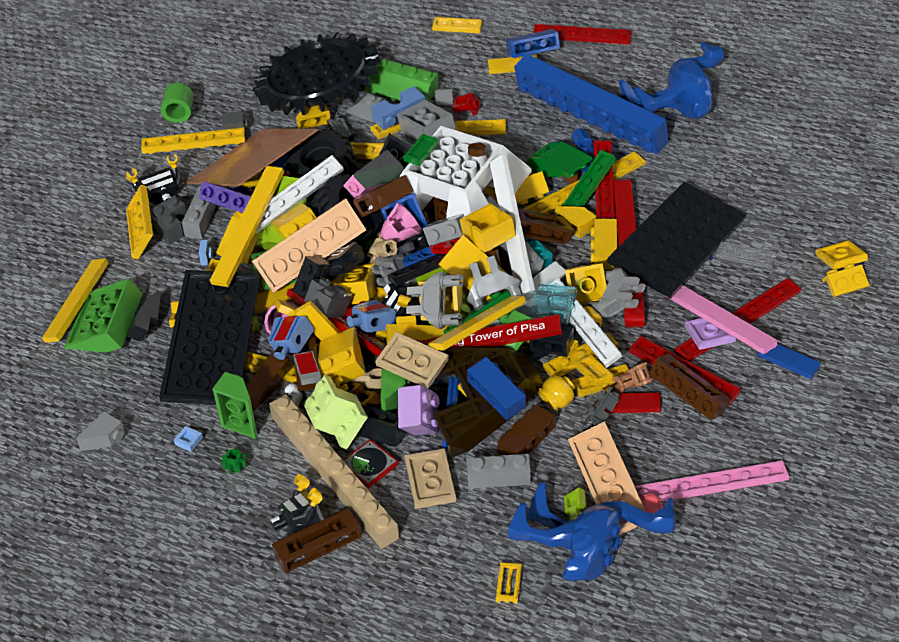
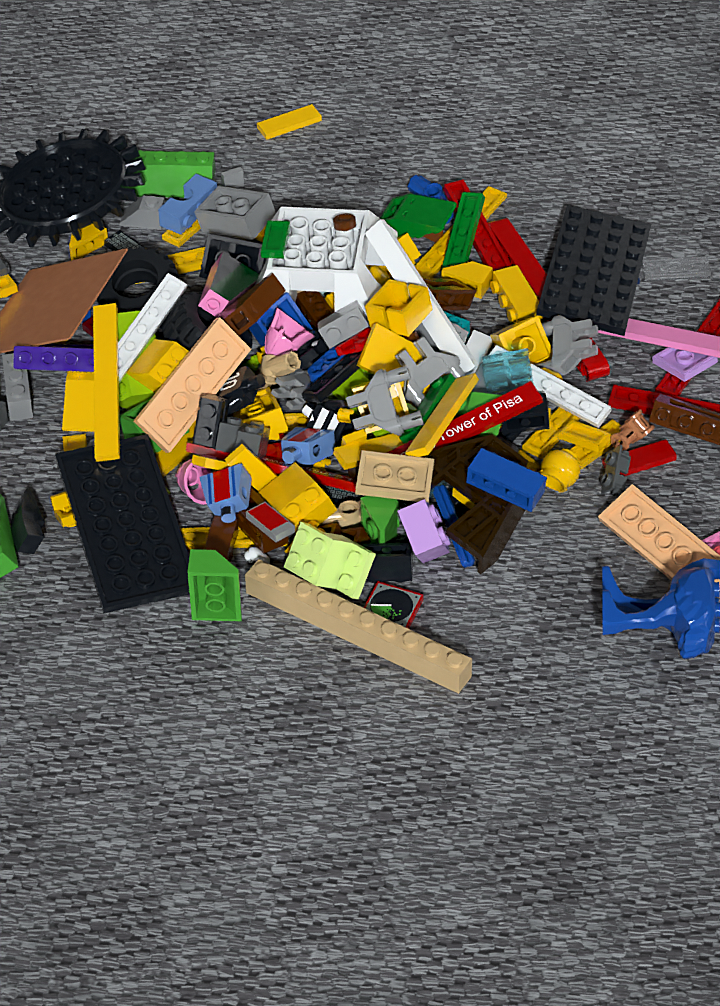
camera: 25 degrees left, 0 degrees up
(101, 433) = (57, 668): light grey slope -> none
(188, 438) = (164, 643): light blue plate -> none
(205, 252) = (52, 431): light blue plate -> none
(234, 461) = (236, 651): green gear -> none
(301, 509) = (350, 677): black torso -> none
(316, 540) = (360, 724): reddish brown brick -> none
(430, 478) = (470, 602): tan plate -> none
(457, 25) = (194, 91): yellow tile -> none
(466, 102) = (263, 178): red bracket -> none
(481, 127) = (305, 199): yellow tile -> none
(498, 471) = (543, 571): light grey brick -> none
(507, 597) = (624, 699): yellow tile -> none
(527, 432) = (549, 524): reddish brown brick -> none
(533, 43) = (302, 91): blue brick -> none
(574, 503) = (644, 581): lime plate -> none
(588, 34) = (349, 67): red plate -> none
(592, 104) = (413, 143): blue brick -> none
(687, 86) = (512, 99): blue animal -> none

